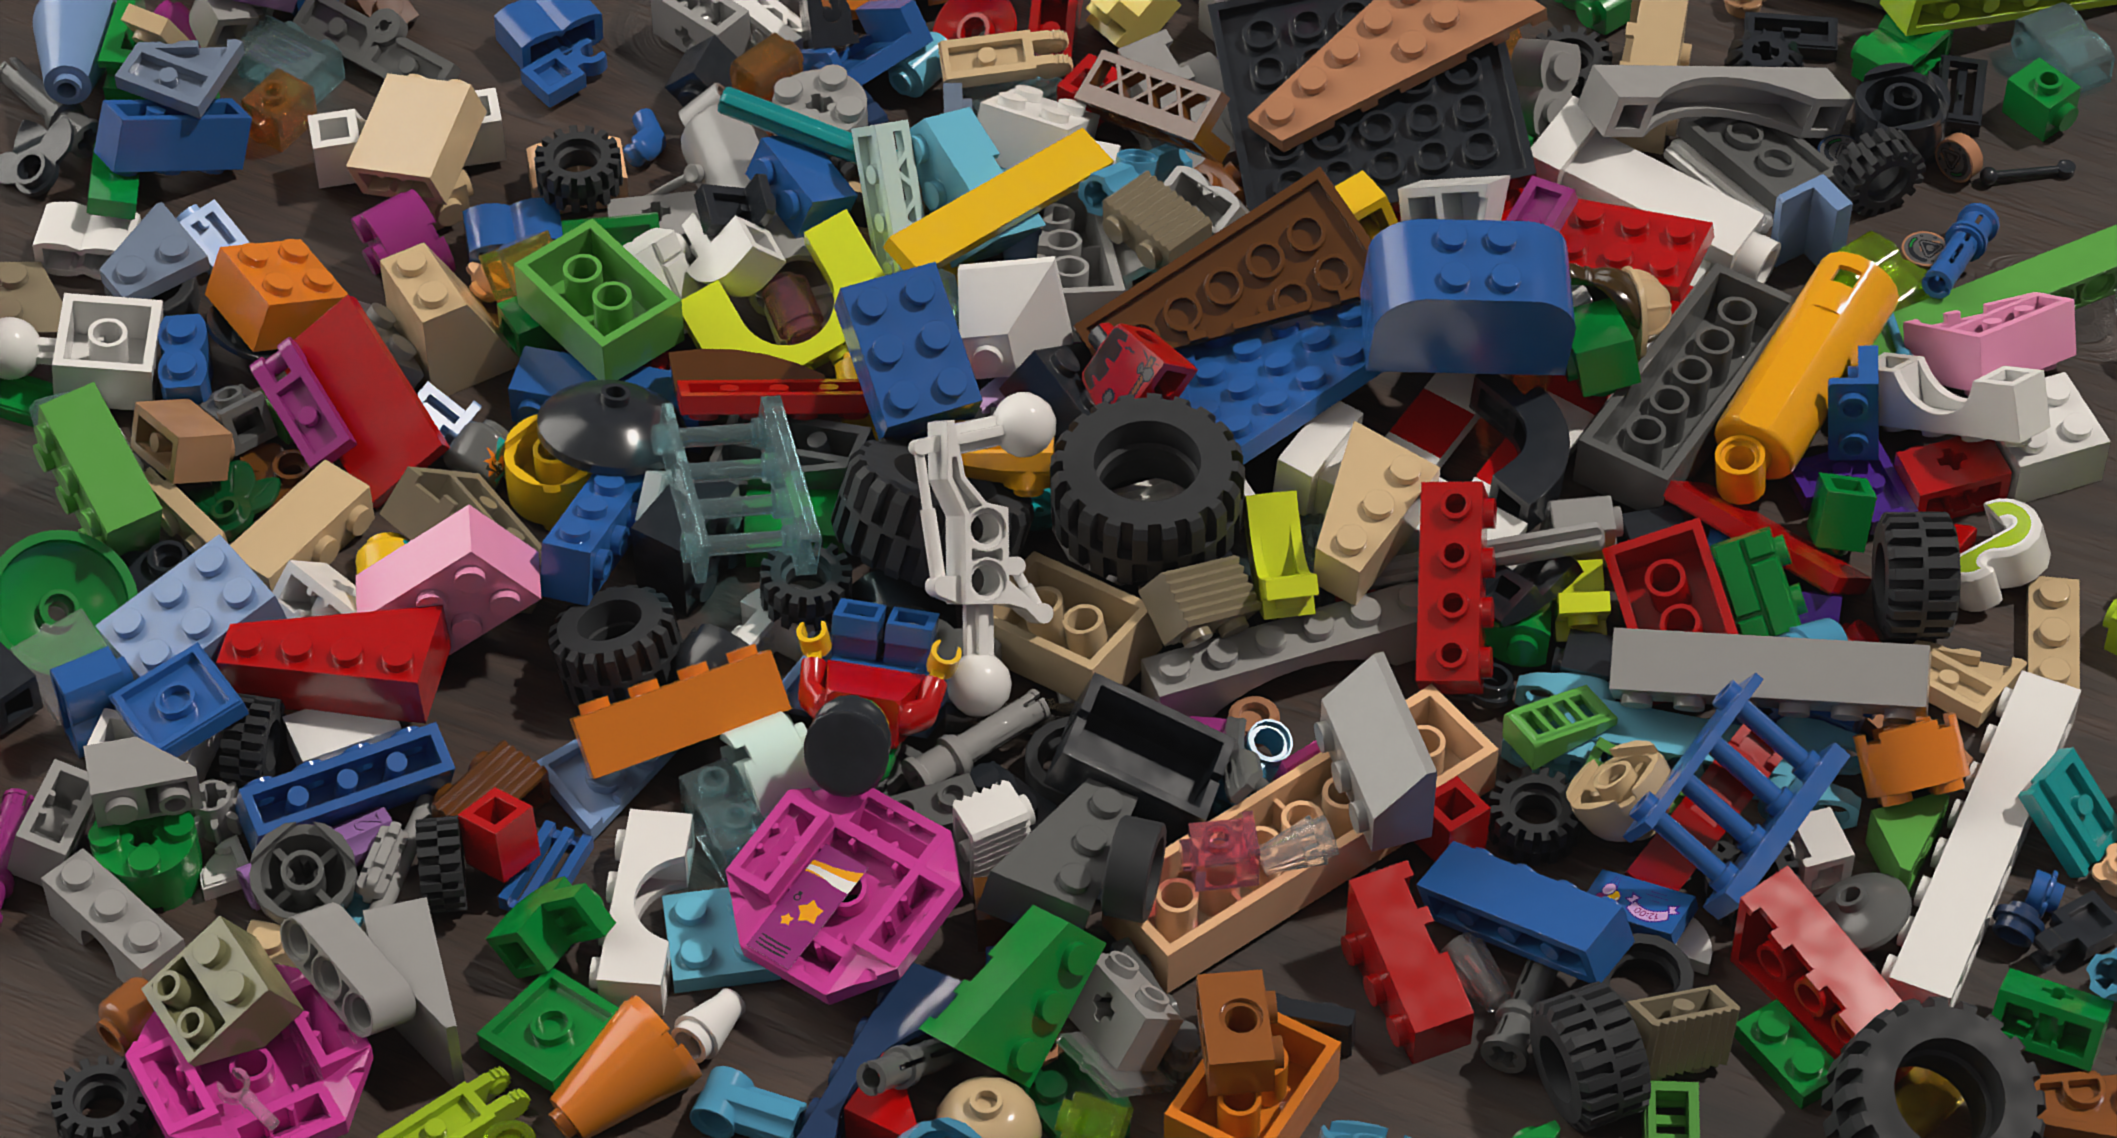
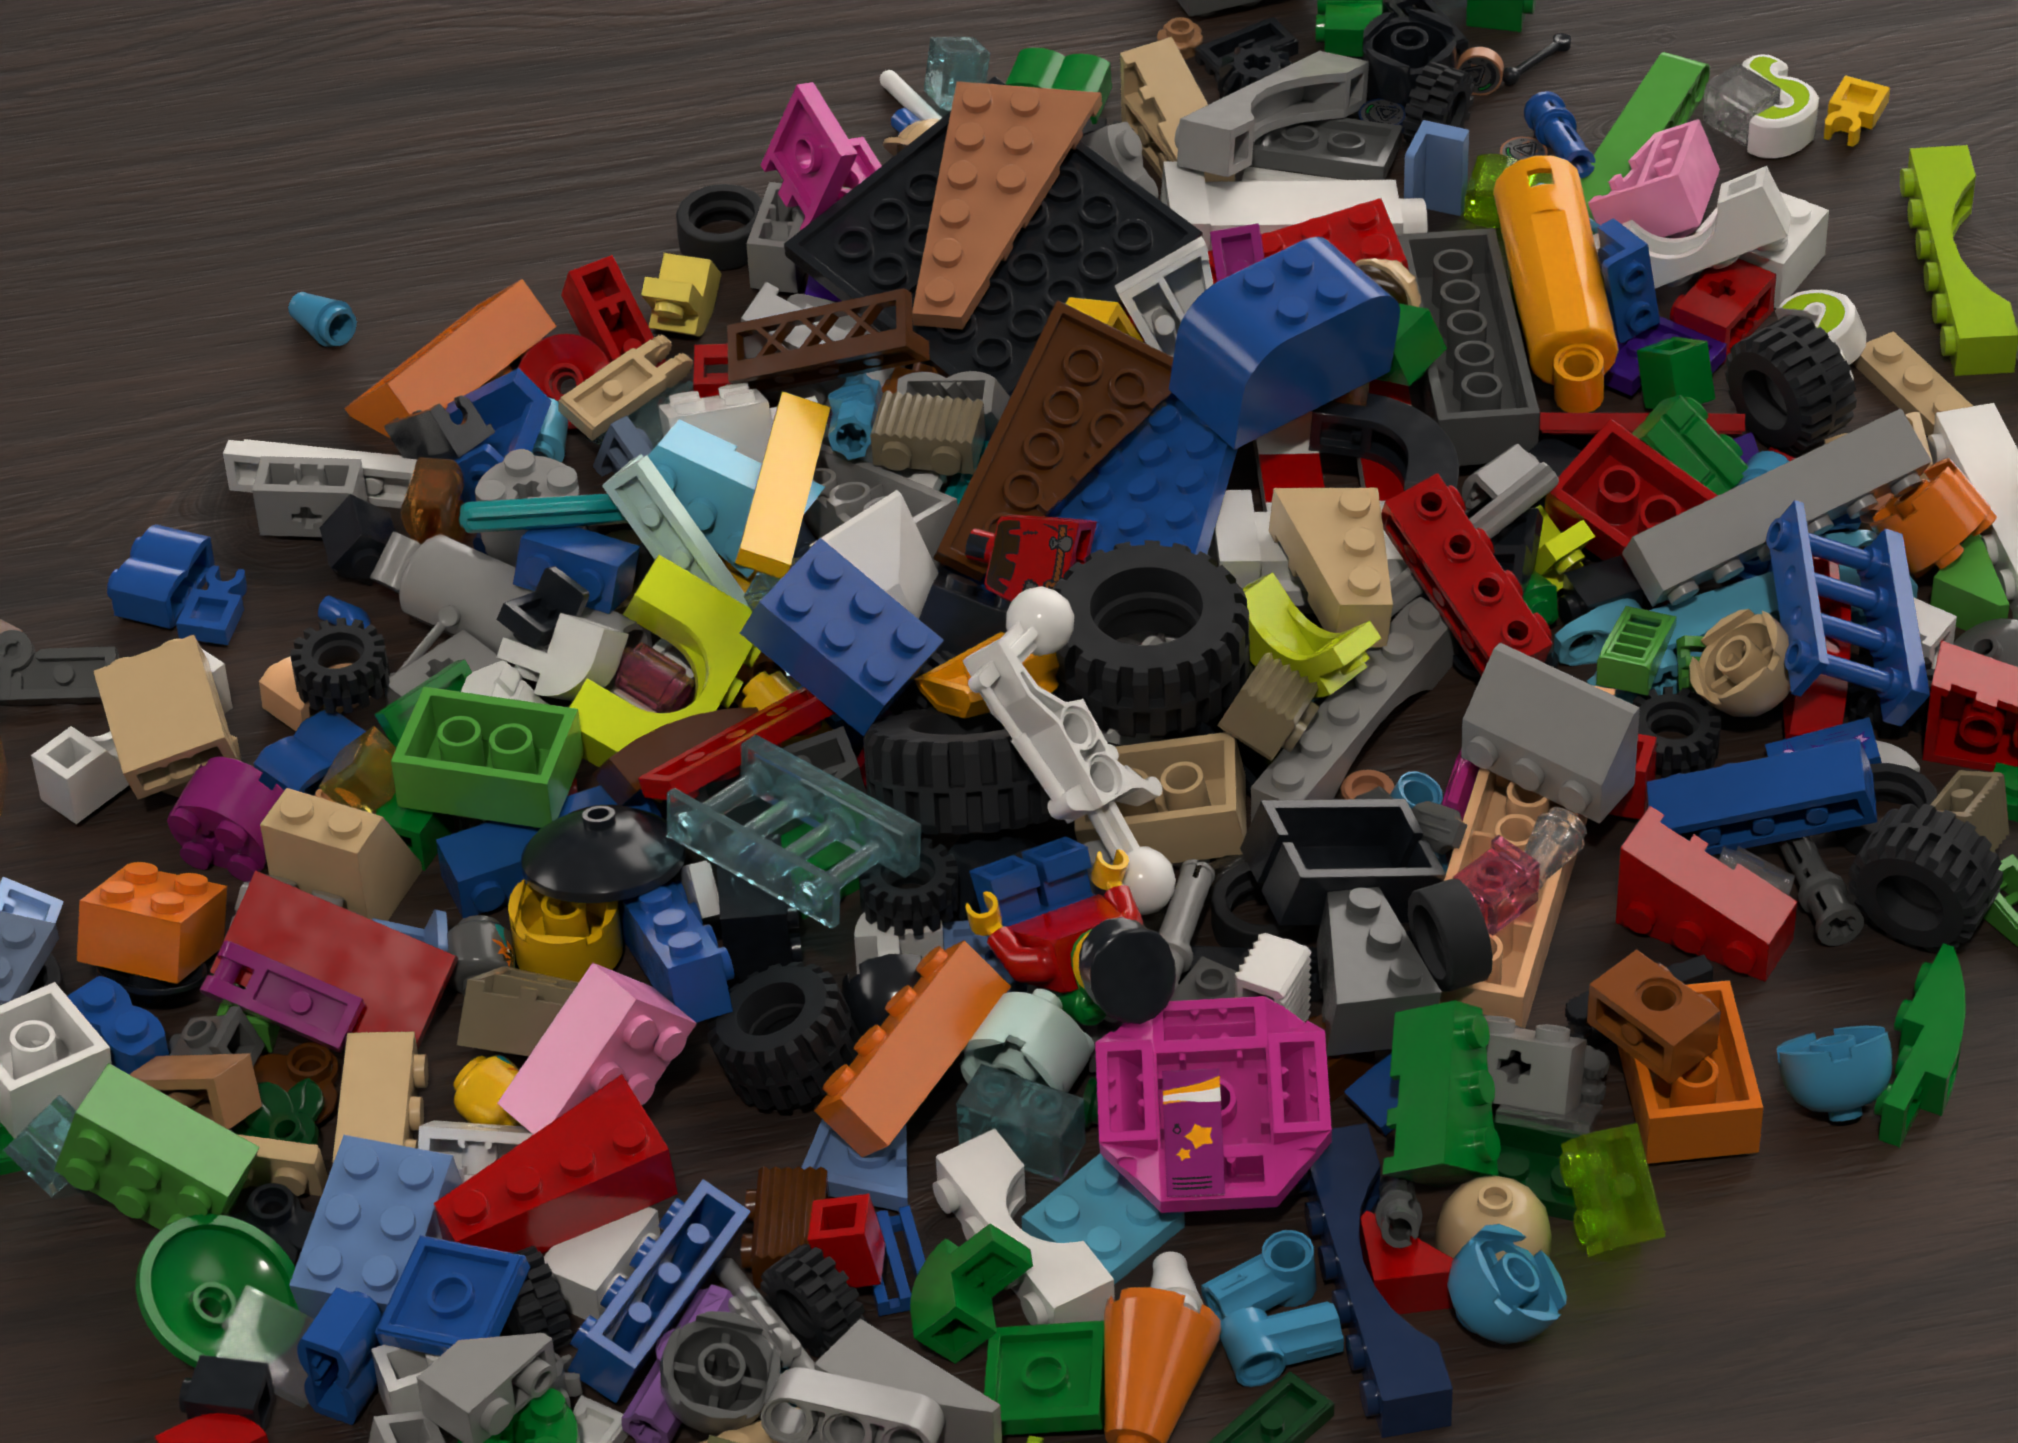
camera: 35 degrees left, 5 degrees down
(782, 1057) = (1278, 1276): none -> dark azure piece

